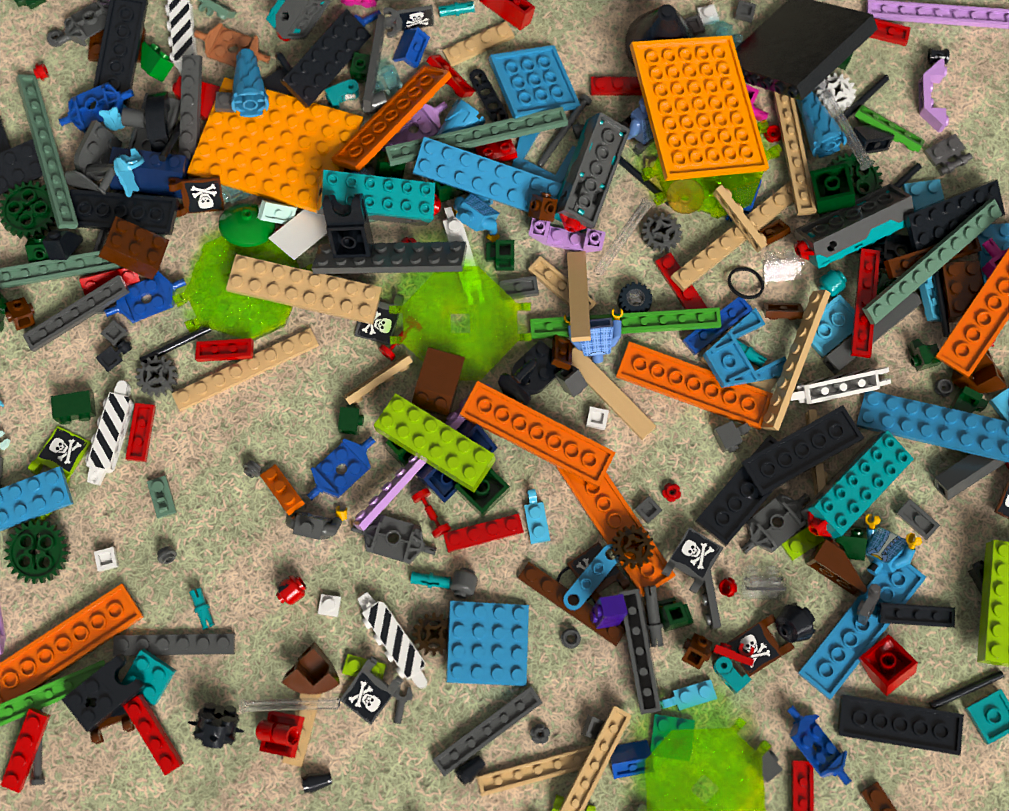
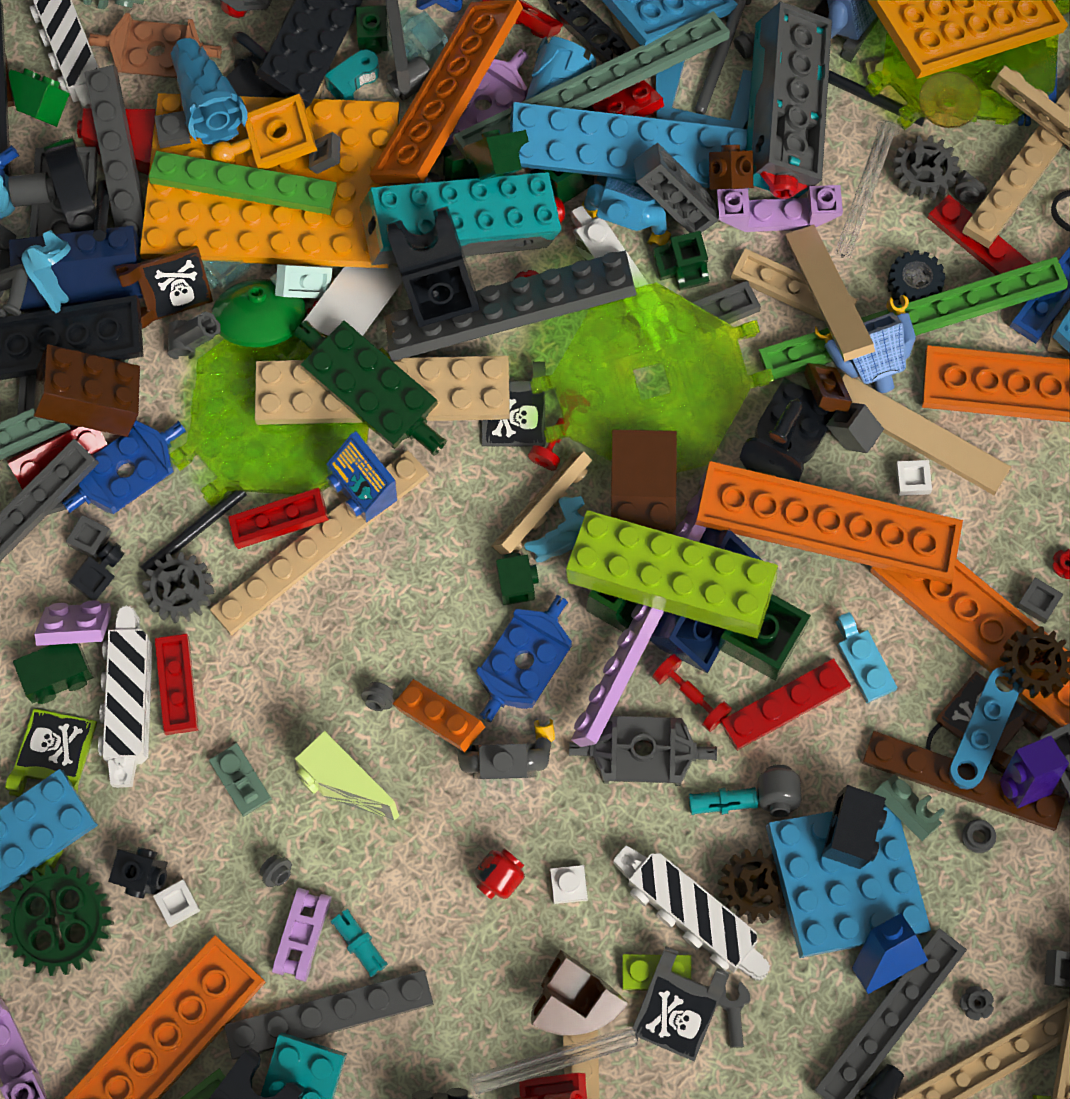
camera: 10 degrees left, 5 degrees down
(89, 536) = (138, 872): none -> black brick
(90, 383) = (73, 623): none -> lavender plate
(171, 595) = (301, 934): none -> lavender plate
(204, 227) = (188, 335): none -> dark grey piece
(211, 505) = (339, 778): none -> yellowish green slope
(257, 145) = (243, 182): none -> bright green plate
(275, 114) = (260, 130): none -> light orange plate
(275, 340) = (361, 478): none -> slope
(295, 286) = (370, 385): none -> dark green plate
(308, 138) = (327, 153): none -> dark grey plate
(380, 404) = (564, 537): none -> medium azure hair
(404, 166) = (497, 153): none -> dark green brick
(496, 693) = (888, 954): none -> blue slope
(497, 617) = (855, 827): none -> black brick
(506, 211) = (675, 189): none -> dark grey brick
(534, 611) = (908, 808): none -> sand green plate
(684, 252) = (969, 188): none -> dark grey plate

